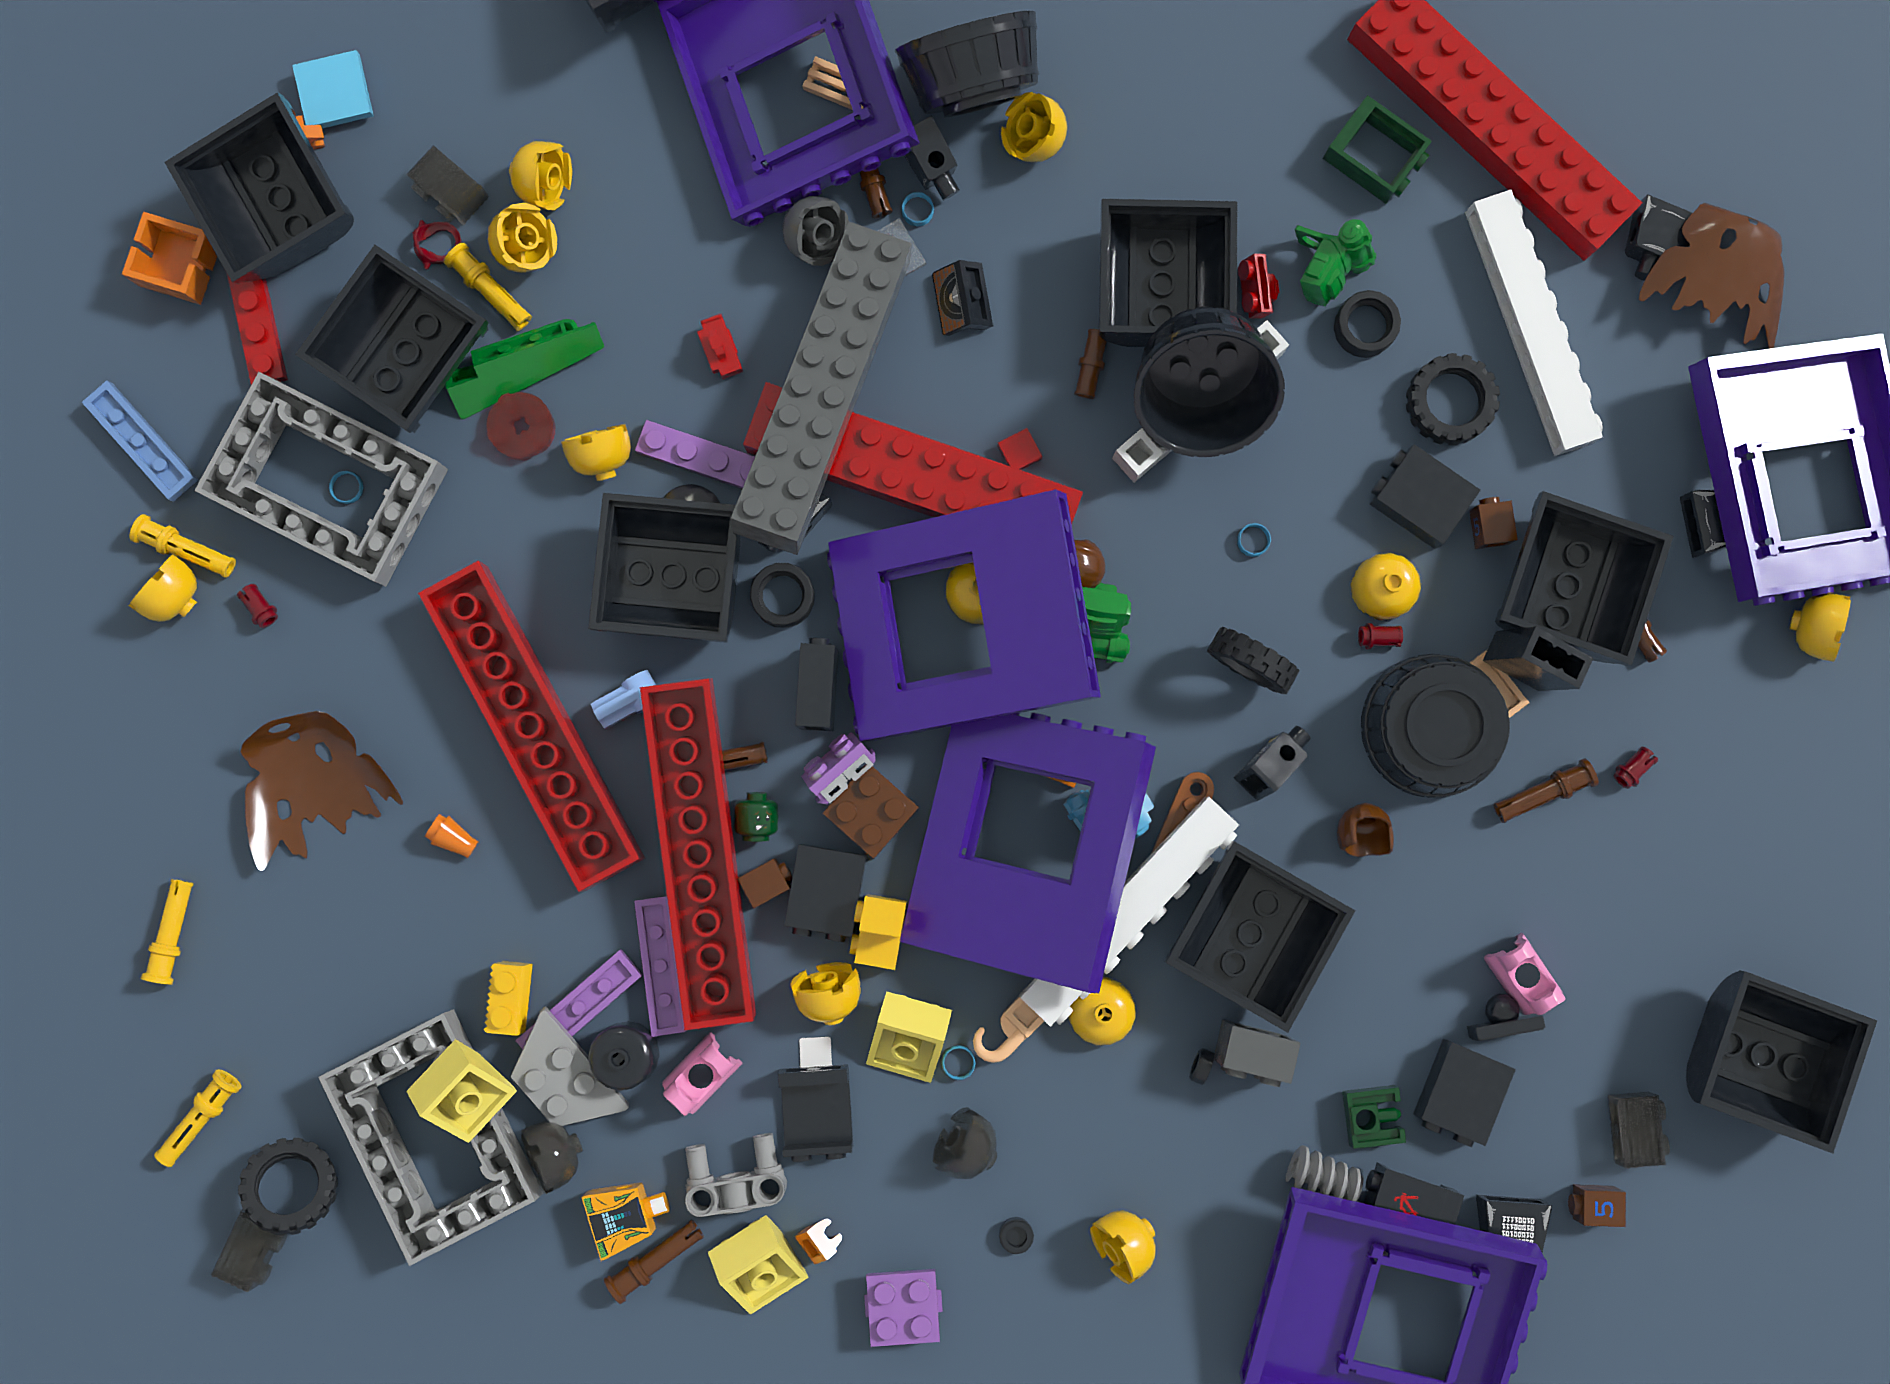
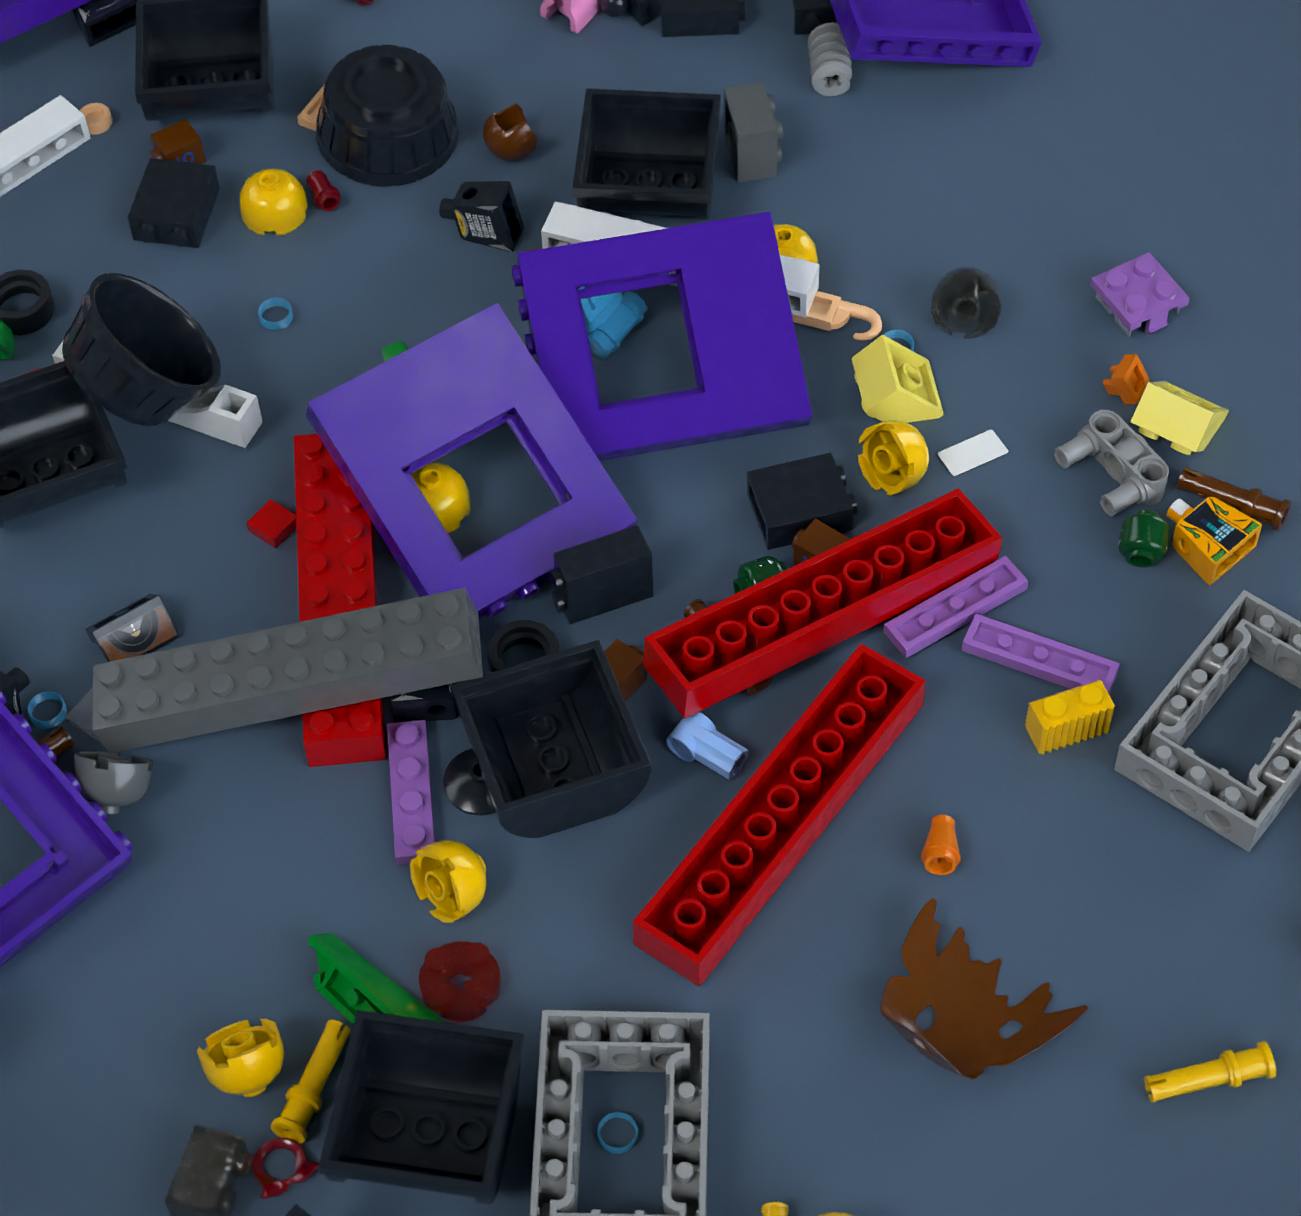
camera: 110 degrees left, 30 degrees down
(257, 605) = (803, 1152): dark red pin -> none
(460, 1091) = (1181, 685): light yellow slope -> none
(541, 173) = (155, 1076): yellow cylinder -> none
(551, 1154) = (1194, 609): clear smoke cylinder -> none
(559, 1077) = (1114, 636): light grey wing -> none
(623, 1042) = (1060, 591): black head -> none
(647, 1157) = (1144, 538): none -> dark green head
(698, 1076) = (1035, 527): bright pink piece -> none
(719, 347) = (281, 822): red piece -> none
(728, 662) = (626, 666): none -> reddish brown brick
(816, 1112) = (1013, 430): black panel -> none
(826, 772) = (676, 528): medium lavender piece -> none
(871, 811) = (700, 493): reddish brown brick -> none
(880, 931) = (803, 434): yellow brick -> none
(1016, 1235) = (1021, 248): black tile -> none
(1091, 365) = (154, 496): reddish brown pin -> none
(1126, 1242) = (977, 162): yellow cylinder -> none
(1201, 1066) = (787, 171): black tile -> none
(1253, 660) = (395, 250): black tyre -> none
(1371, 1134) = (760, 56): dark green brick -> none
(1476, 375) = (73, 242): black tyre -> none
(1538, 659) = (292, 61): black brick -> none
(1559, 785) = (396, 31): reddish brown pin -> none
(1575, 467) = (97, 117): none -> light nougat tile

